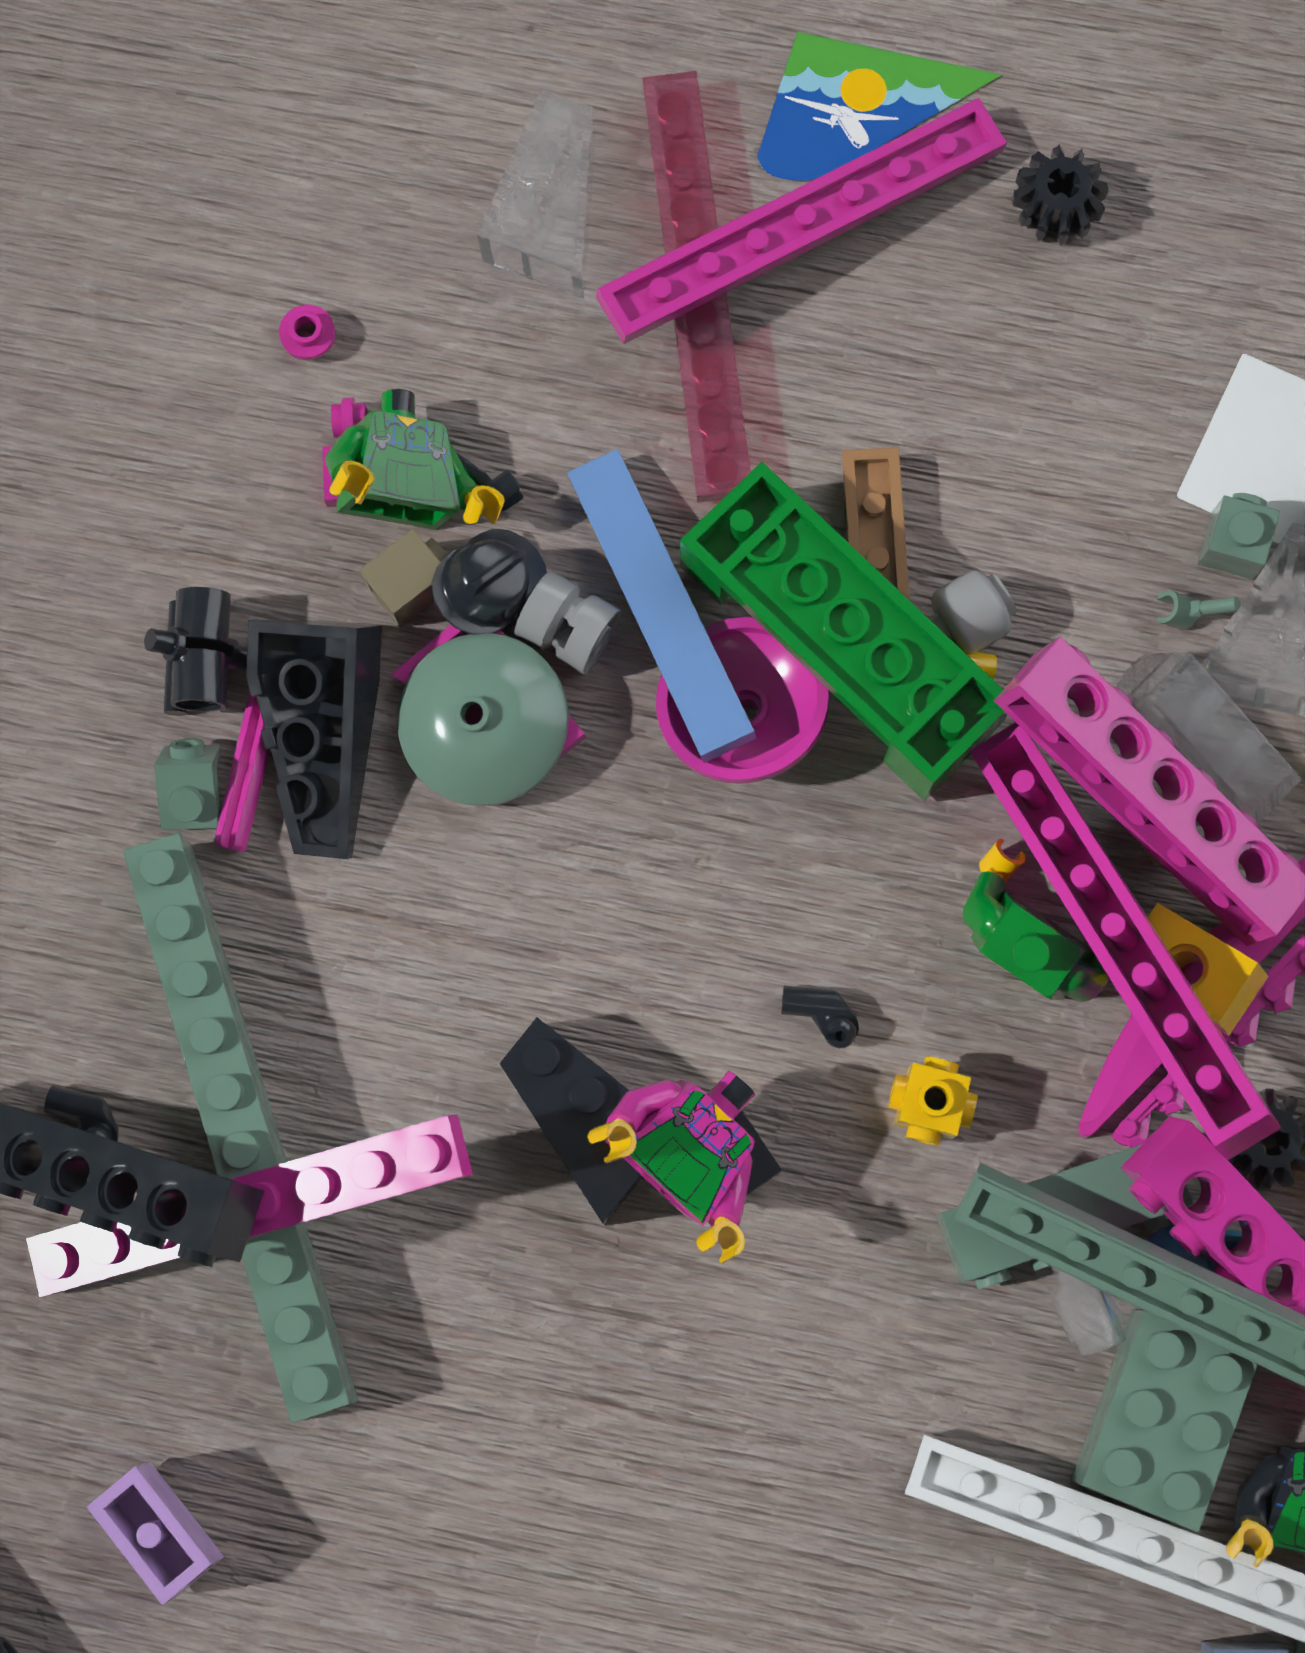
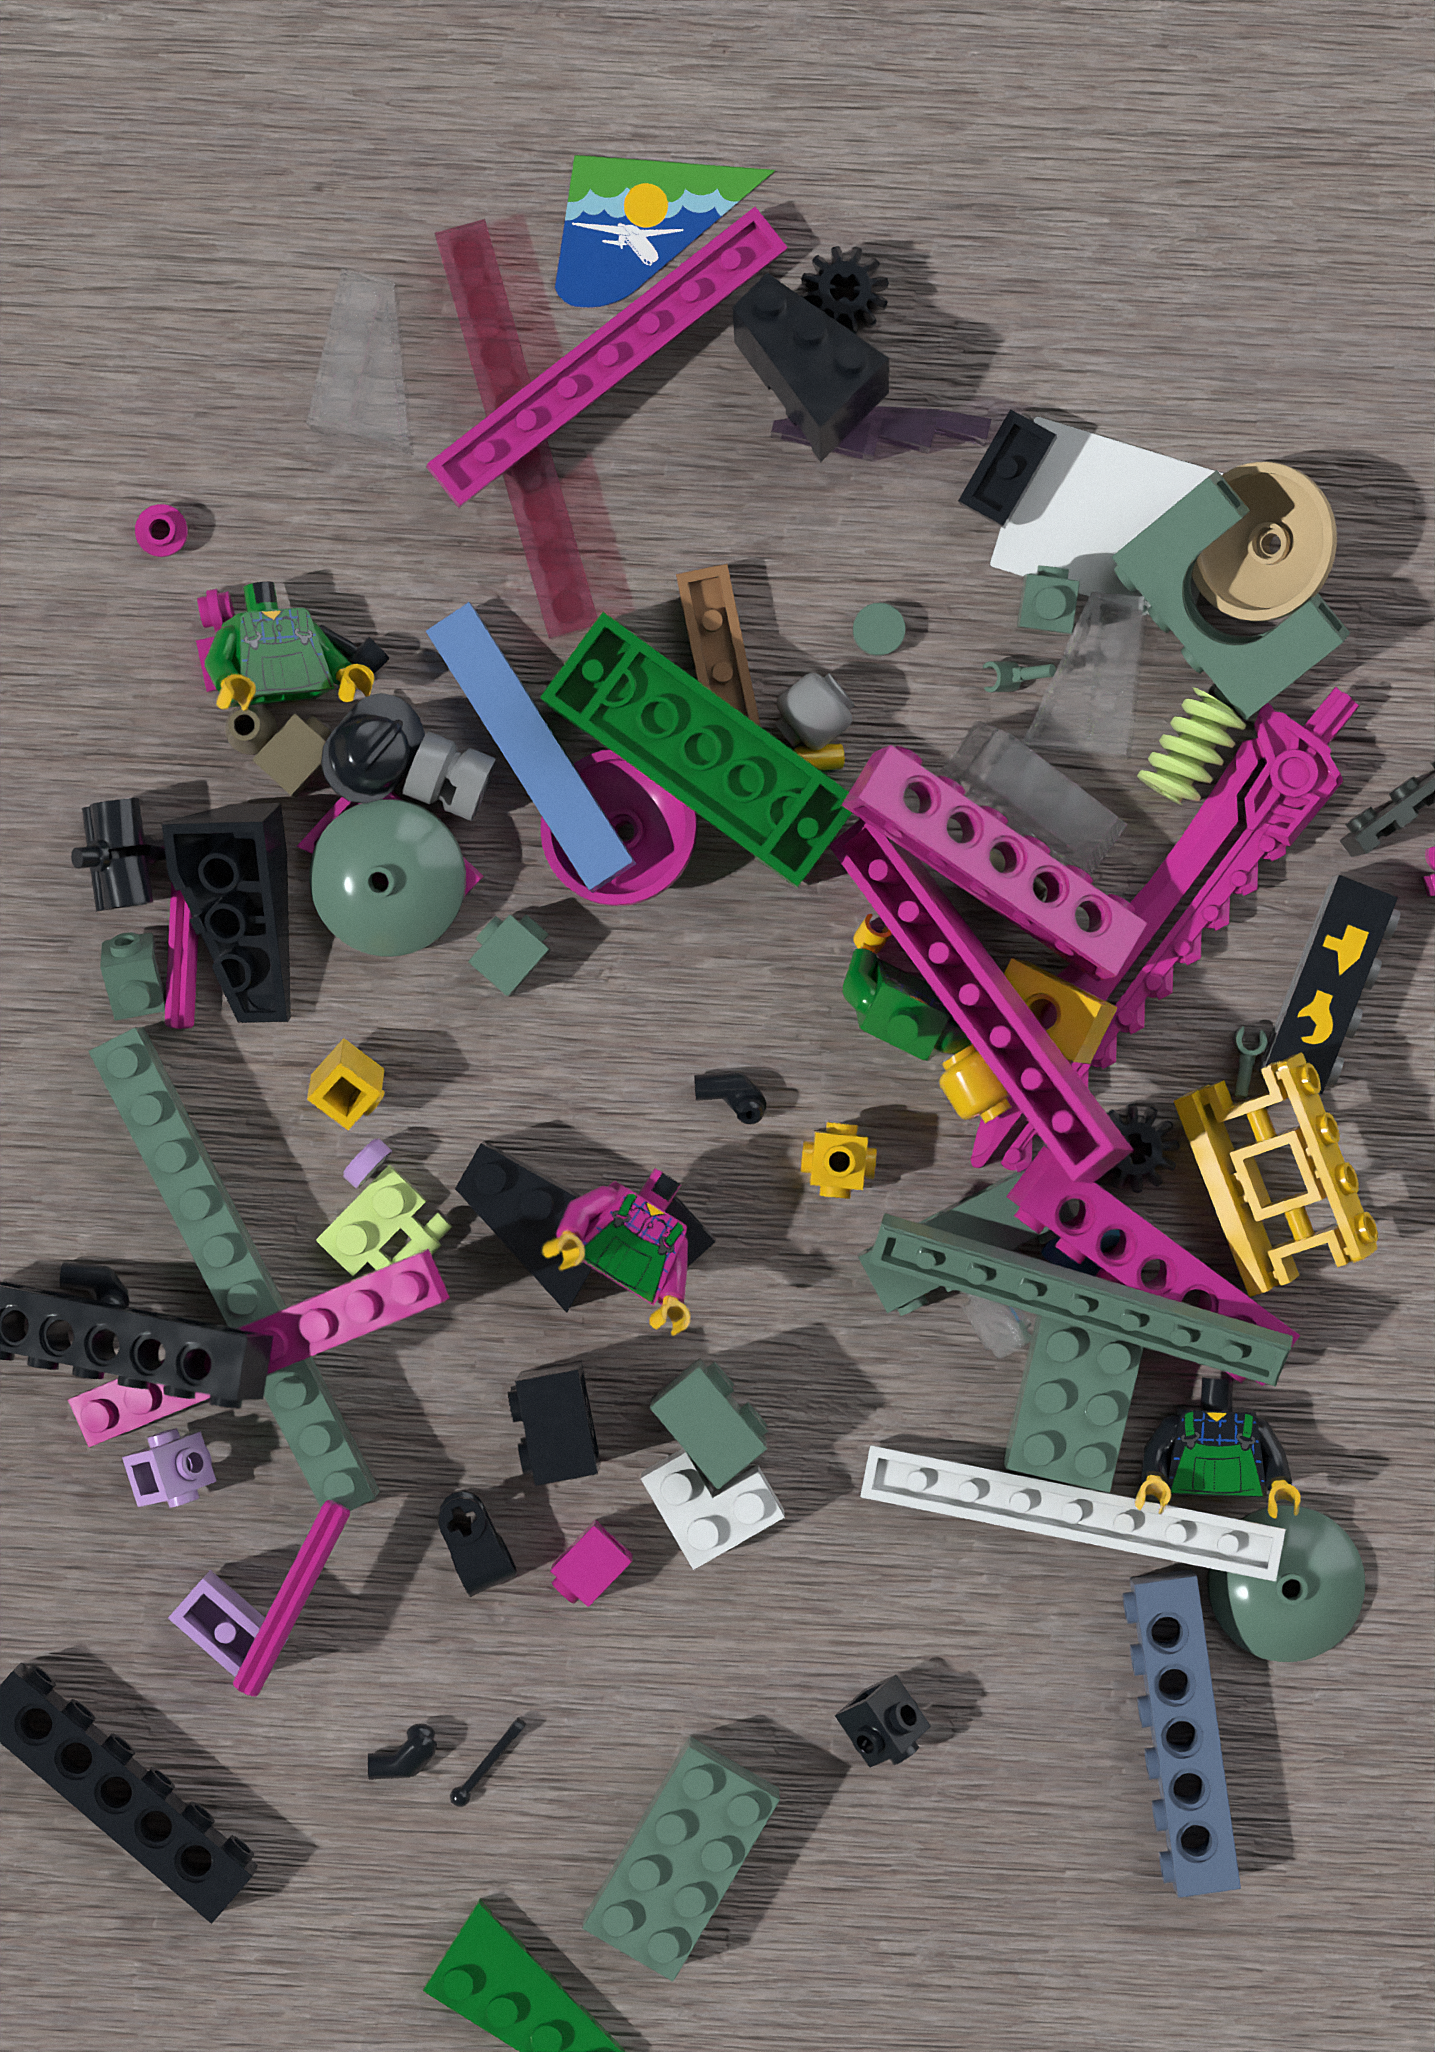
camera: 15 degrees left, 10 degrees up
(124, 1334) = (169, 1469): none -> lavender brick
(230, 1506) = (291, 1598): none -> dark pink axle
(358, 552) = (263, 731): none -> dark tan cone
(400, 934) = (346, 1084): none -> yellow brick
(407, 1025) = (366, 1163): none -> lavender tile
(407, 1089) = (375, 1219): none -> yellowish green plate
(455, 1488) = (476, 1551): none -> black piece
(569, 1350) = (556, 1423): none -> black brick
(582, 1525) = (589, 1565): none -> dark pink brick
(602, 819) = (509, 951): none -> sand green brick
(727, 1493) = (708, 1519): none -> white brick
(747, 1378) = (710, 1422): none -> sand green brick
(1018, 248) = (810, 362): none -> black wedge
(1050, 542) = (878, 629): none -> sand green tile
(1056, 332) = (897, 427): none -> clear purple slope
(1100, 1038) = (973, 1086): none -> yellow head
(1210, 396) = (1007, 469): none -> black plate

